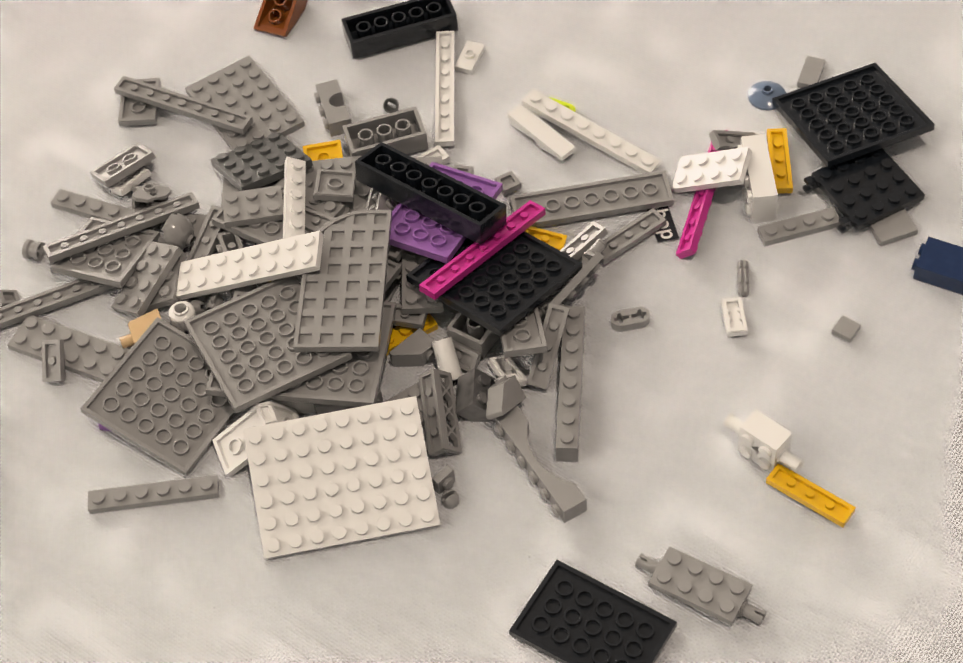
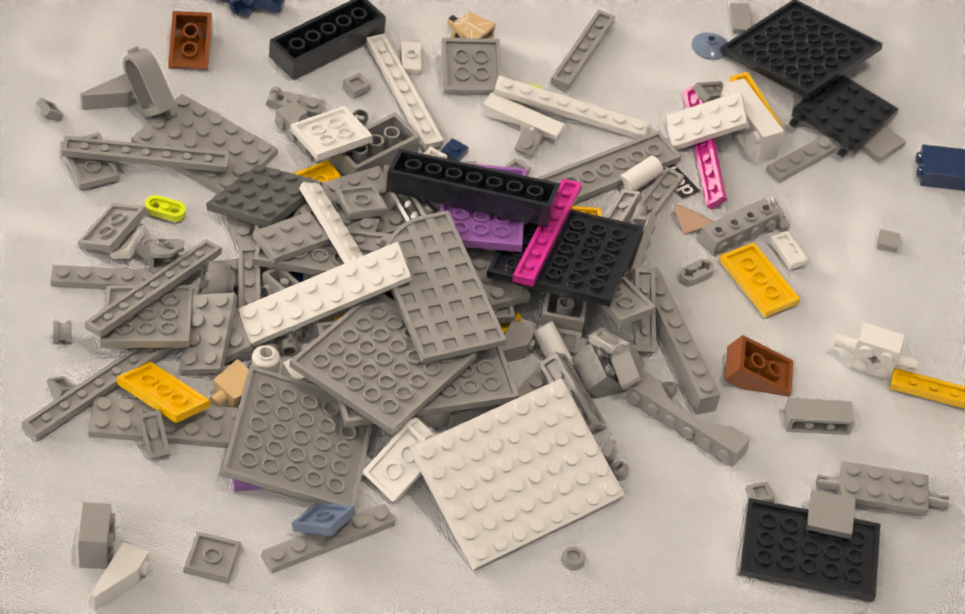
camera: 35 degrees left, 5 degrees down
(47, 485) = (212, 557): none -> light grey tile
(80, 324) = (163, 392): none -> yellow plate
(131, 49) = (49, 109): none -> light grey plate
(150, 476) = (323, 519): none -> sand blue plate
(178, 156) = (165, 208): none -> neon yellow plate
(195, 44) = (110, 94): none -> light grey slope
(210, 38) = (147, 82): none -> light grey window
(344, 115) = (331, 133): none -> white plate
(348, 84) = (281, 98): none -> light grey plate
(360, 573) = (573, 558): none -> light grey tile
(405, 74) = (356, 84): none -> light grey plate
(462, 153) = (455, 150): none -> dark blue plate
(515, 73) = (470, 65): none -> light grey plate
(534, 157) = (529, 141): none -> light grey bracket
(536, 42) = (471, 27): none -> tan torso
(537, 429) = (670, 388): none -> light grey hinge
(575, 557) = (760, 491): none -> light grey tile
(623, 210) = (642, 173): none -> white brick
(628, 598) = (831, 514): none -> light grey tile
(634, 77) = (582, 49): none -> light grey plate
(639, 430) = (758, 368): none -> dark orange slope
(653, 265) = (690, 220): none -> medium nougat slope
(673, 493) = (819, 416): none -> light grey brick
(688, 340) = (759, 279): none -> yellow plate
(694, 282) = (738, 227): none -> light grey brick

